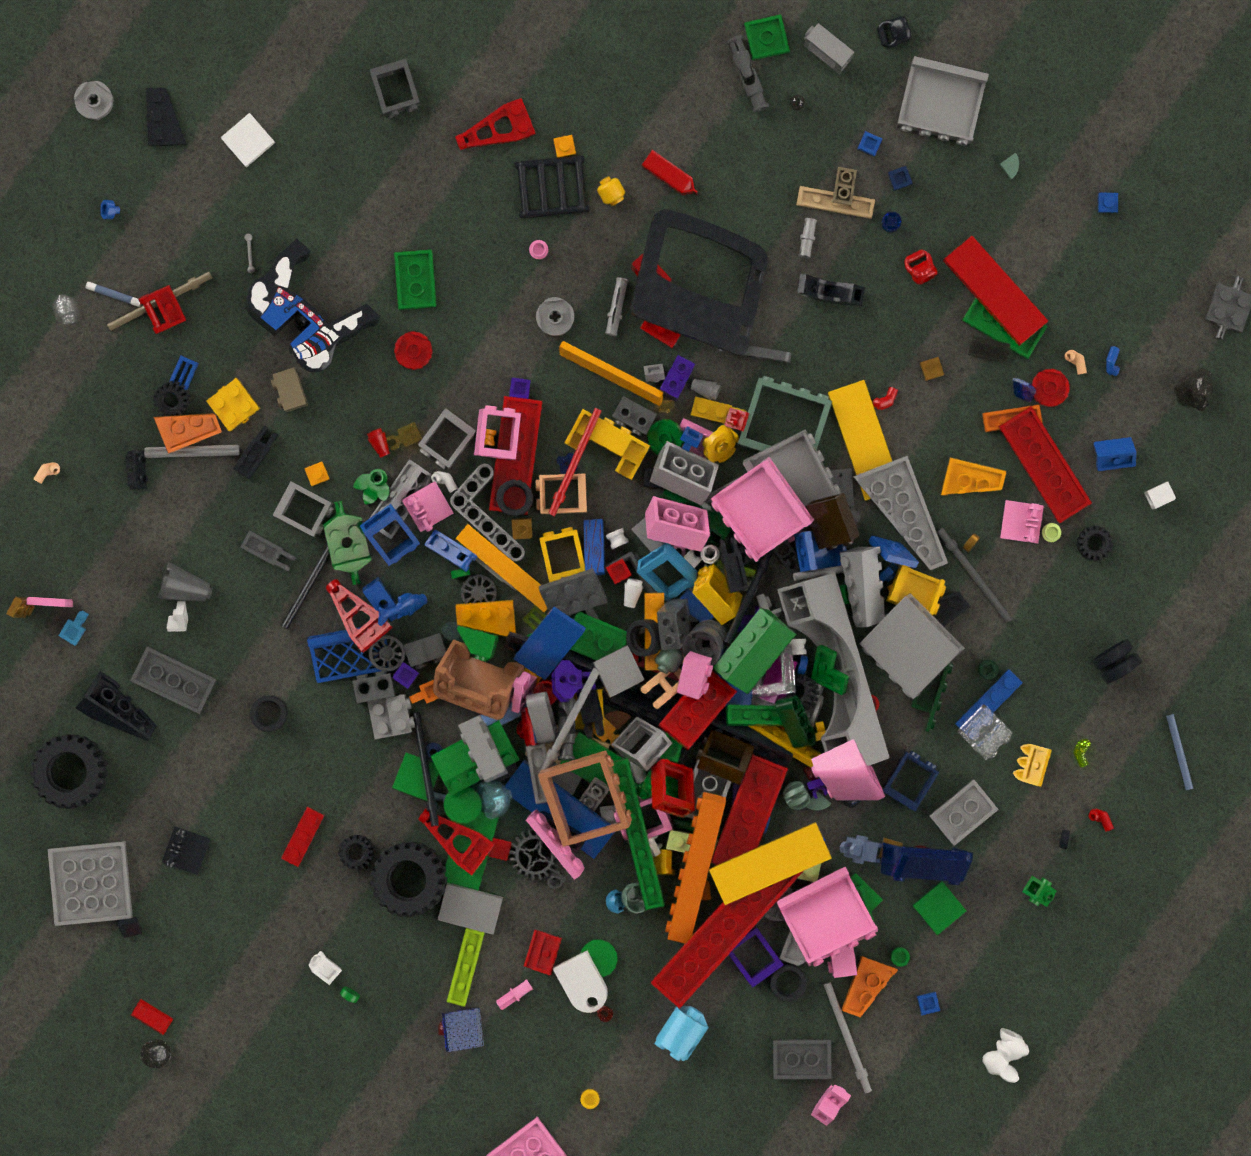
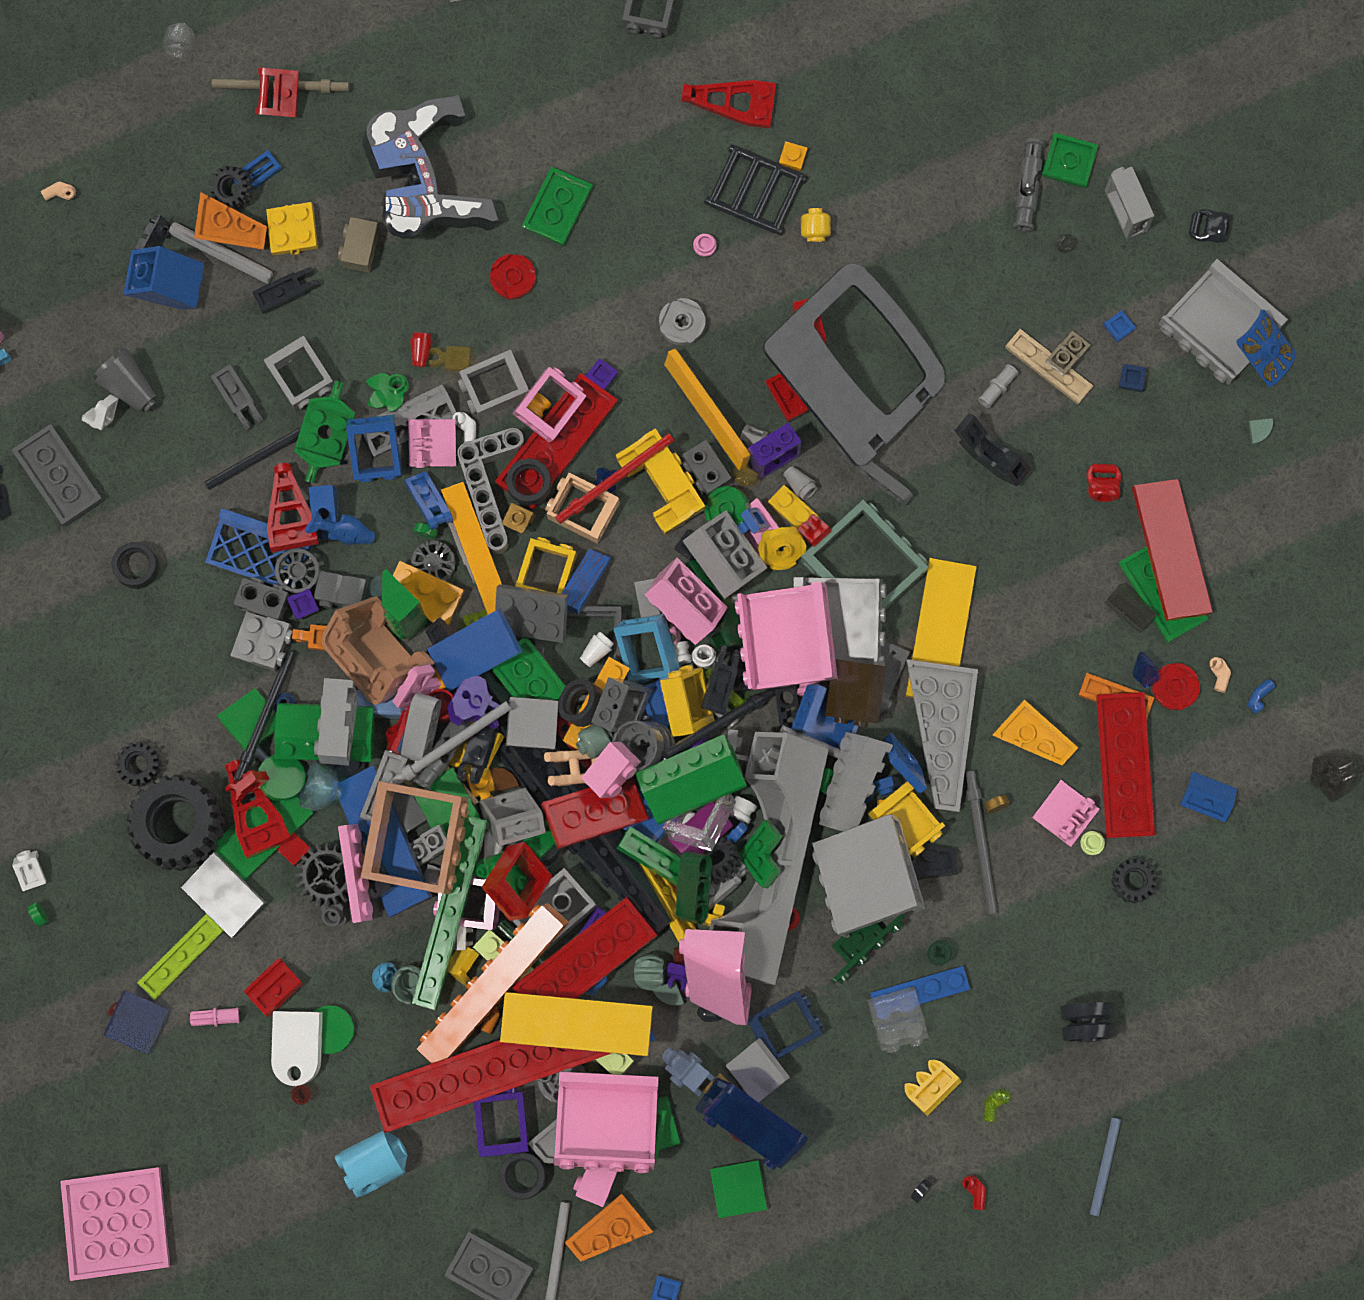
camera: 30 degrees right, 10 degrees down
(113, 294) = (237, 53): sand blue bar -> none
(164, 495) = (164, 277): none -> blue slope
(248, 237) = (409, 73): light grey hinge -> none
(303, 836) = (91, 716): red plate -> none
(317, 473) = (336, 346): light orange plate -> none
(445, 822) = (250, 782): none -> red plate
(590, 1099) = (229, 1181): yellow tile -> none
(616, 306) = (746, 354): light grey pin -> none
(617, 538) = (614, 587): white wheel -> none
(618, 571) = (594, 619): red plate -> none
(669, 174) = (887, 241): red piece -> none
(727, 745) = (605, 873): dark brown window -> none
(887, 401) = (986, 602): red arm -> none
(893, 219) = (1099, 413): clear blue wheel -> none
(900, 956) = (663, 1219): green tile -> none
(909, 822) = (757, 1071): none -> light grey tile
(931, 368) = (1056, 595): pearl gold tile -> none
(963, 812) = (824, 1096): light grey plate -> none
(986, 105) = (1267, 349): none -> blue shield
(1039, 891) = (861, 1232): green brick -> none
(1107, 202) = (1345, 525): blue plate -> none
(1160, 495) = (1235, 867): white panel -> none

